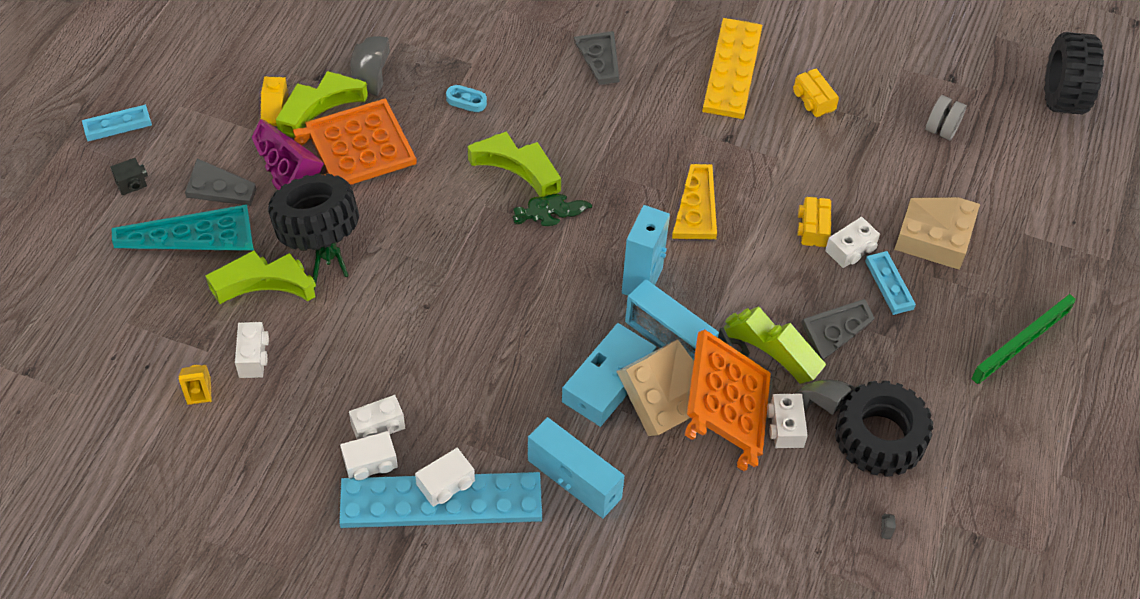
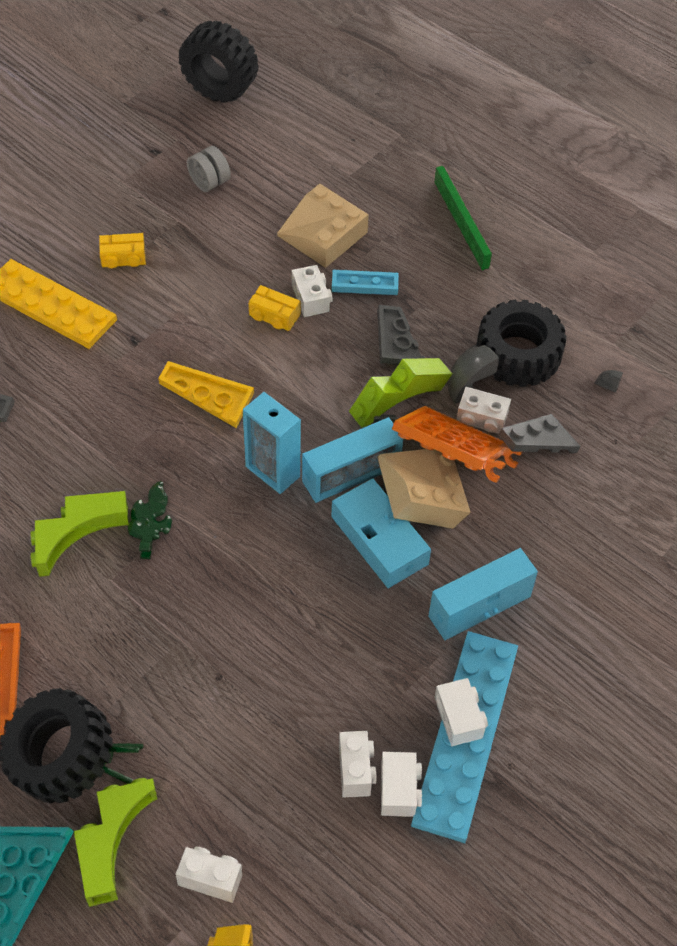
camera: 70 degrees left, 0 degrees up
(783, 475) = (538, 434): none -> dark grey wing

